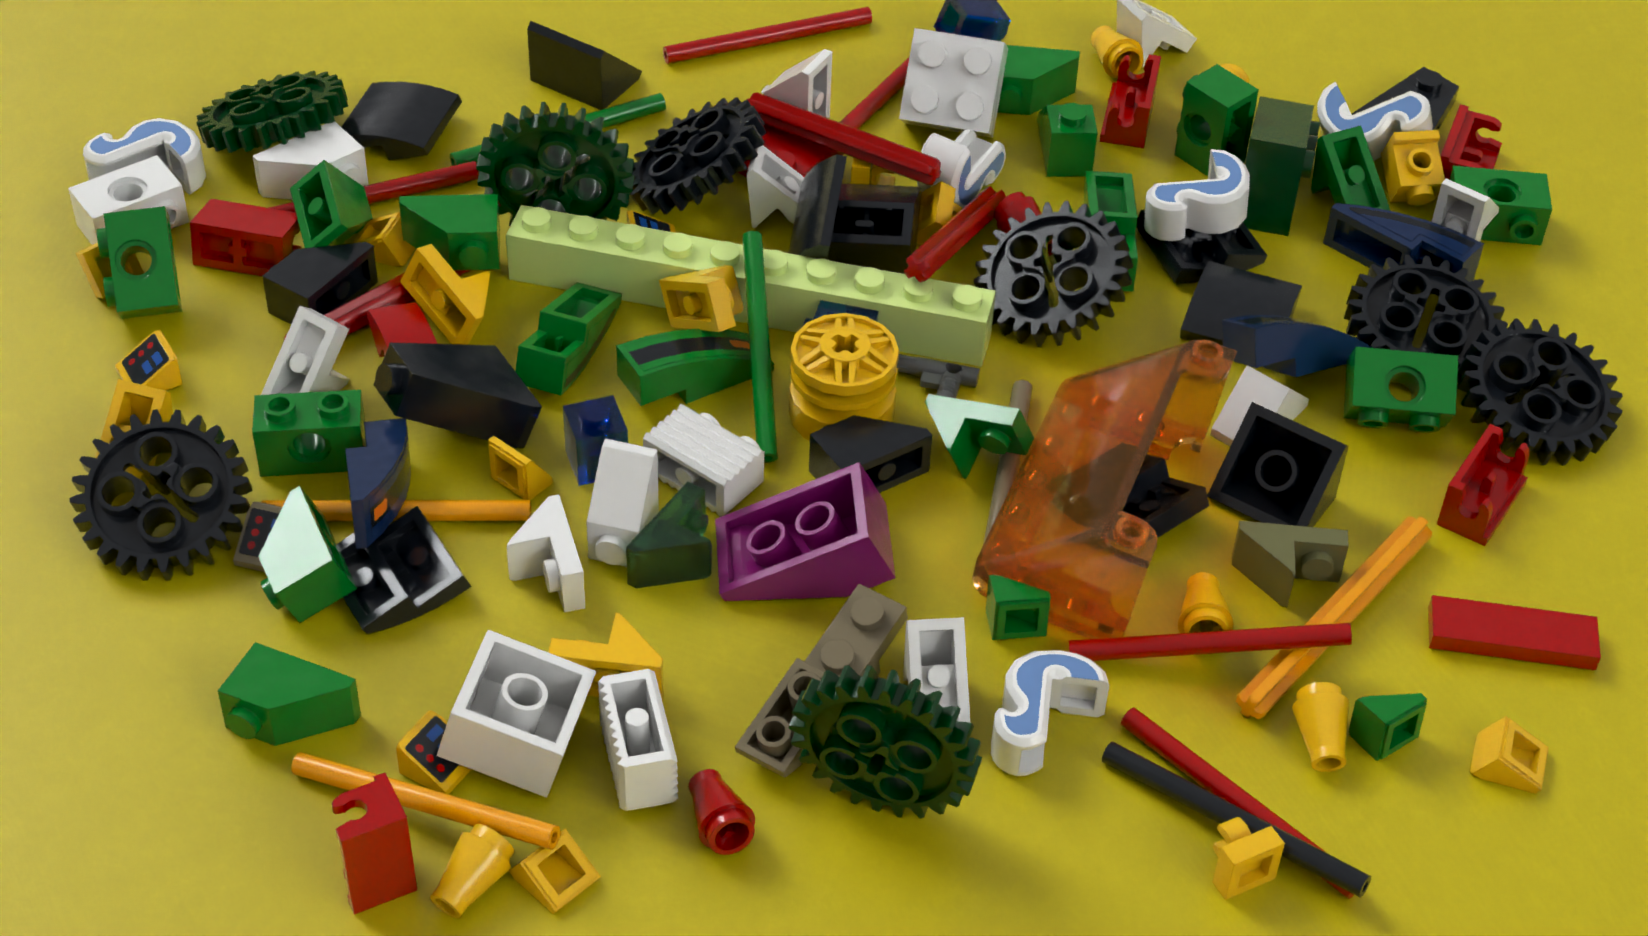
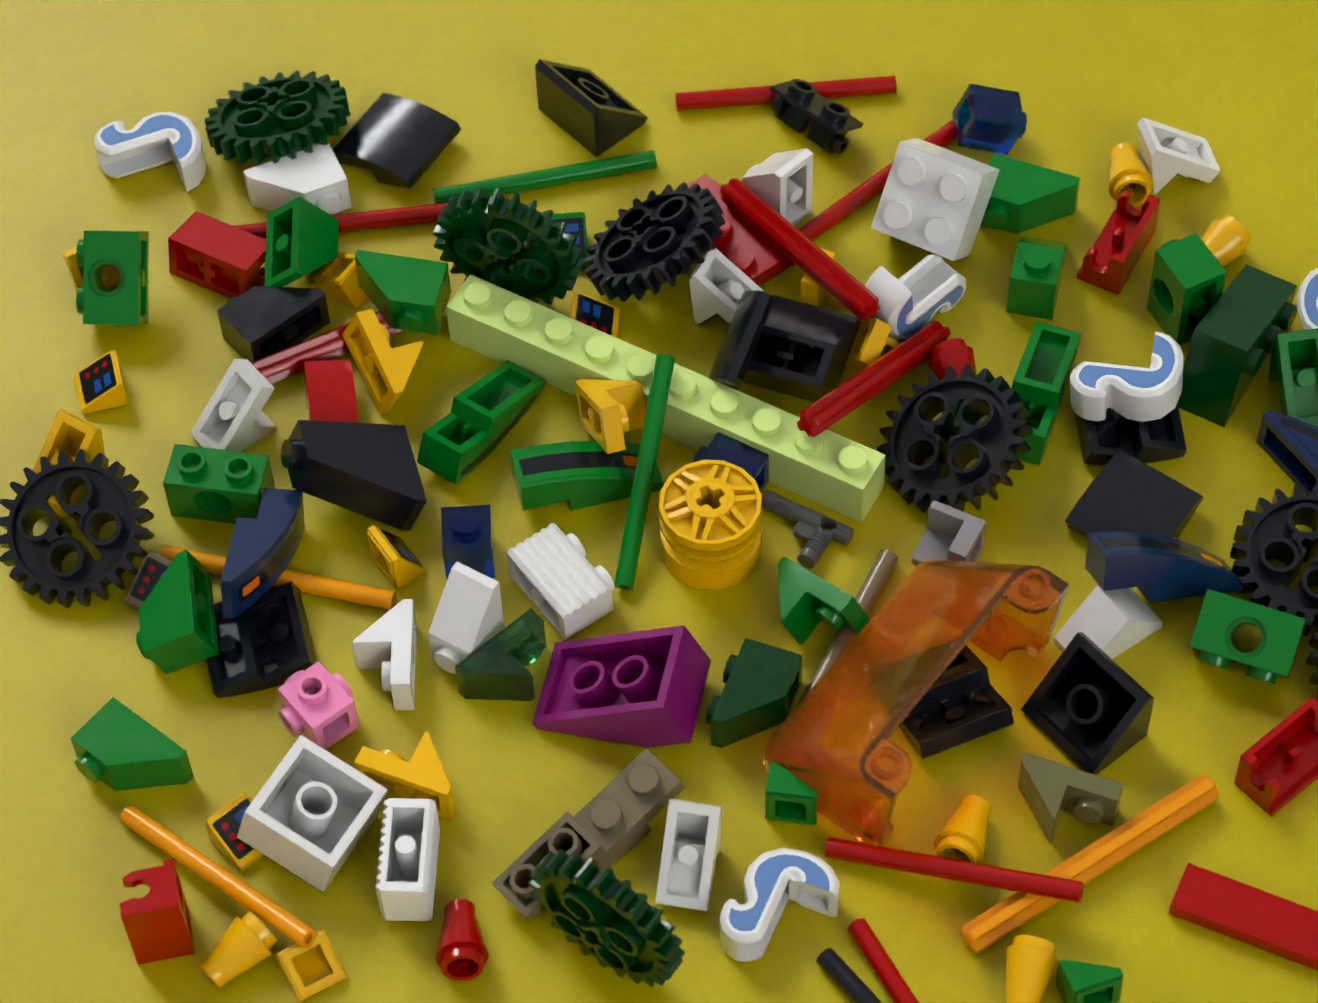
camera: 20 degrees right, 10 degrees up
(129, 188) = (126, 197): white brick -> none
(483, 604) = (318, 706): none -> bright pink brick
(788, 37) = (800, 103): none -> black hinge
(885, 449) = (713, 605): black slope -> none
(945, 521) = (756, 692): none -> dark green slope
(1075, 352) = (950, 535): none -> light grey panel

